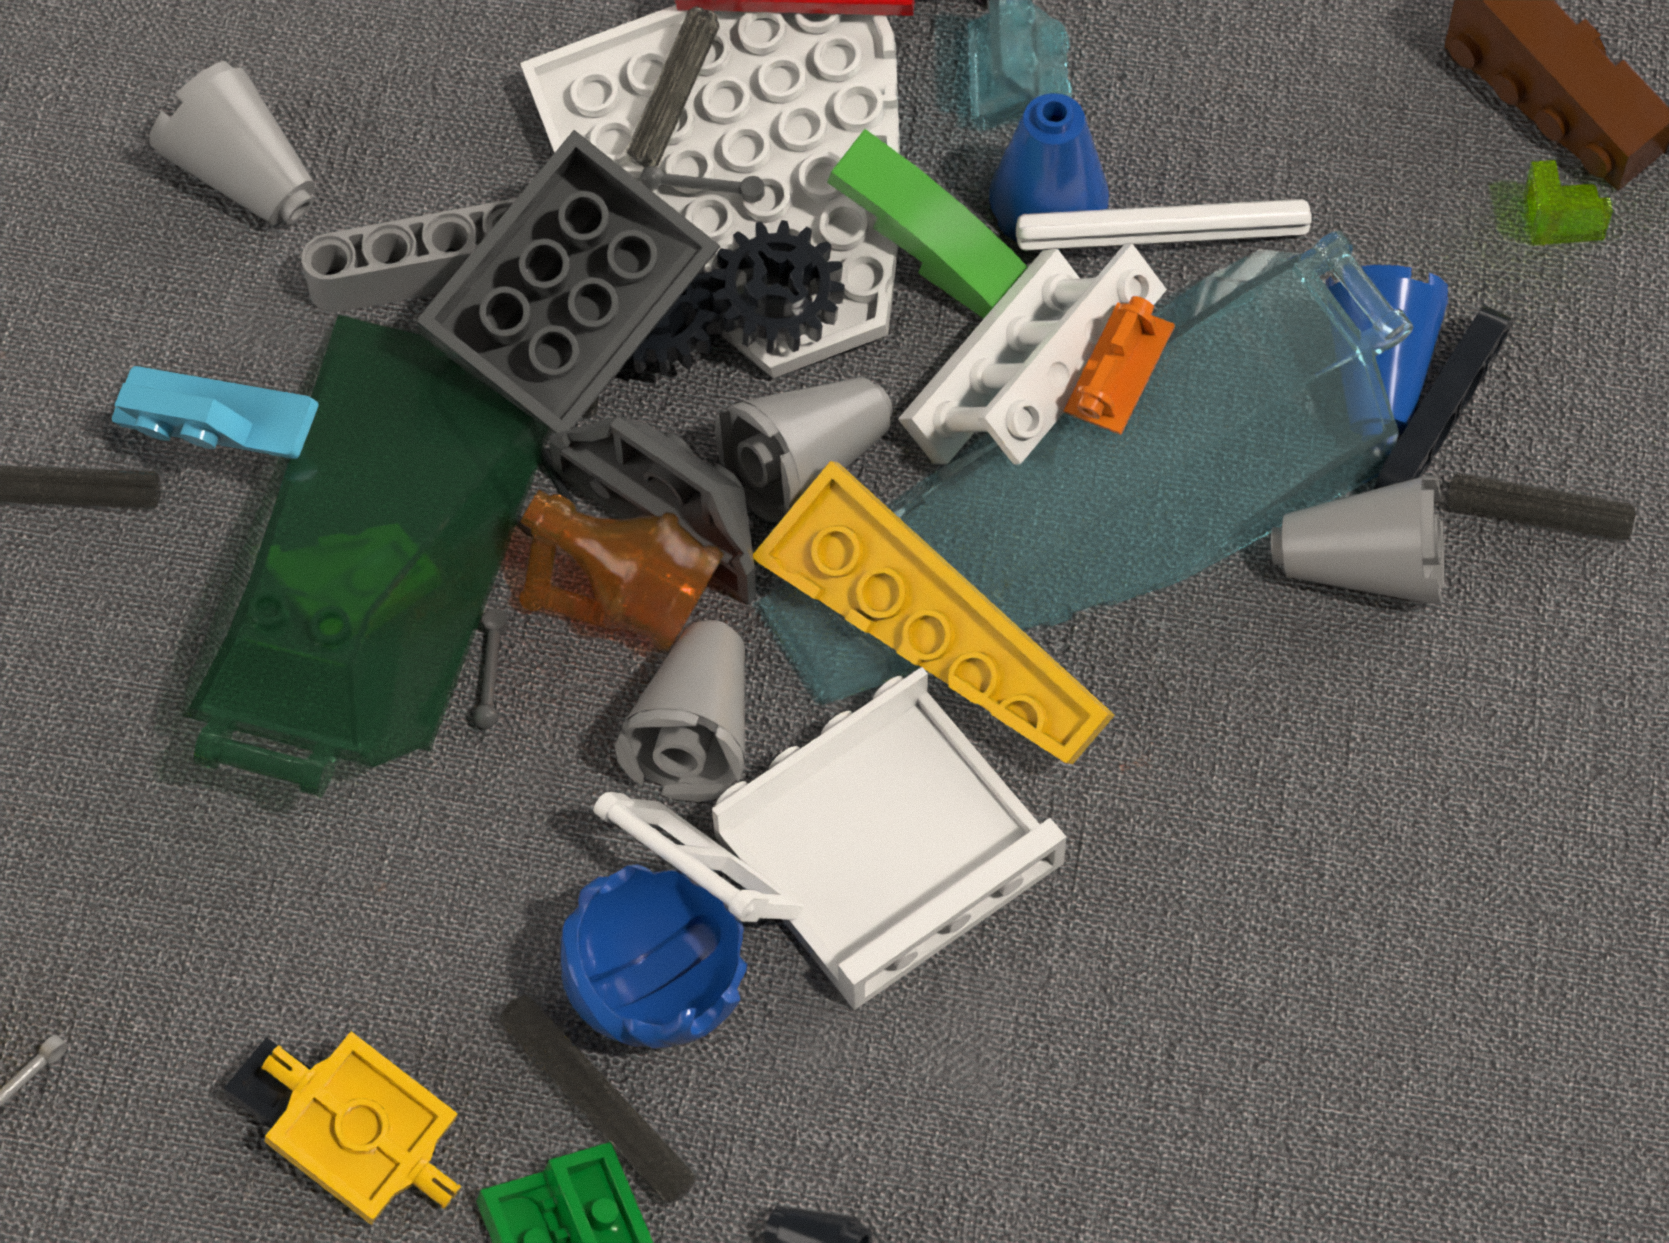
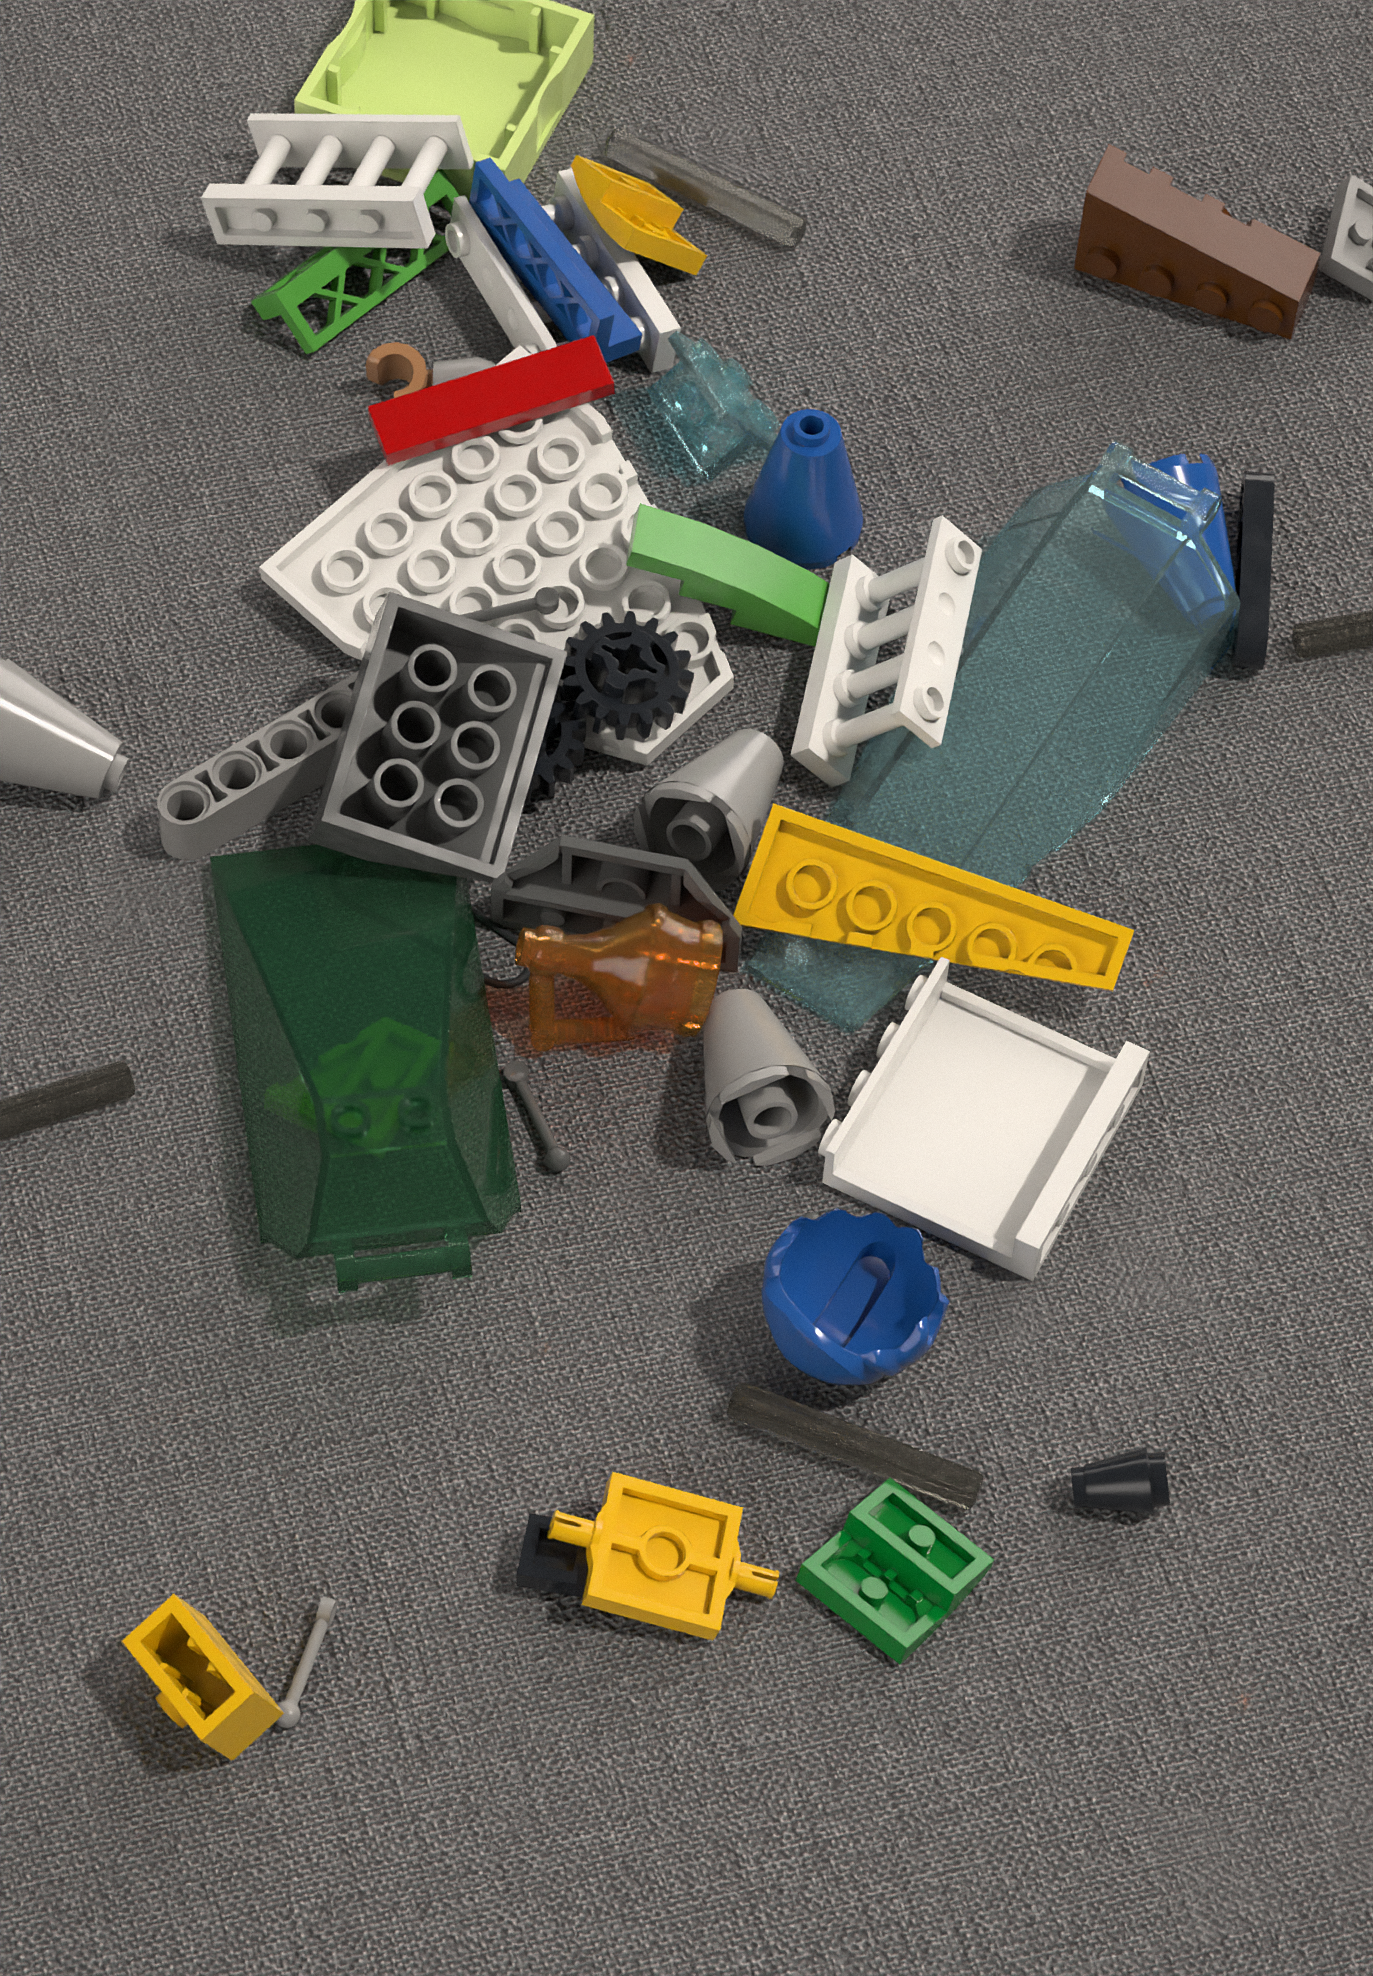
camera: 30 degrees left, 5 degrees down
(214, 412) = (159, 980): medium azure bracket -> none
(673, 87) = (425, 529): clear smoke axle -> none
(698, 858) = (917, 1210): white window -> none
(1120, 366) = (985, 625): orange hinge -> none
(1163, 224) = (925, 503): white axle -> none
(1369, 542) = (1262, 705): light grey cone -> none
(1563, 212) = (1258, 371): clear neon green panel -> none

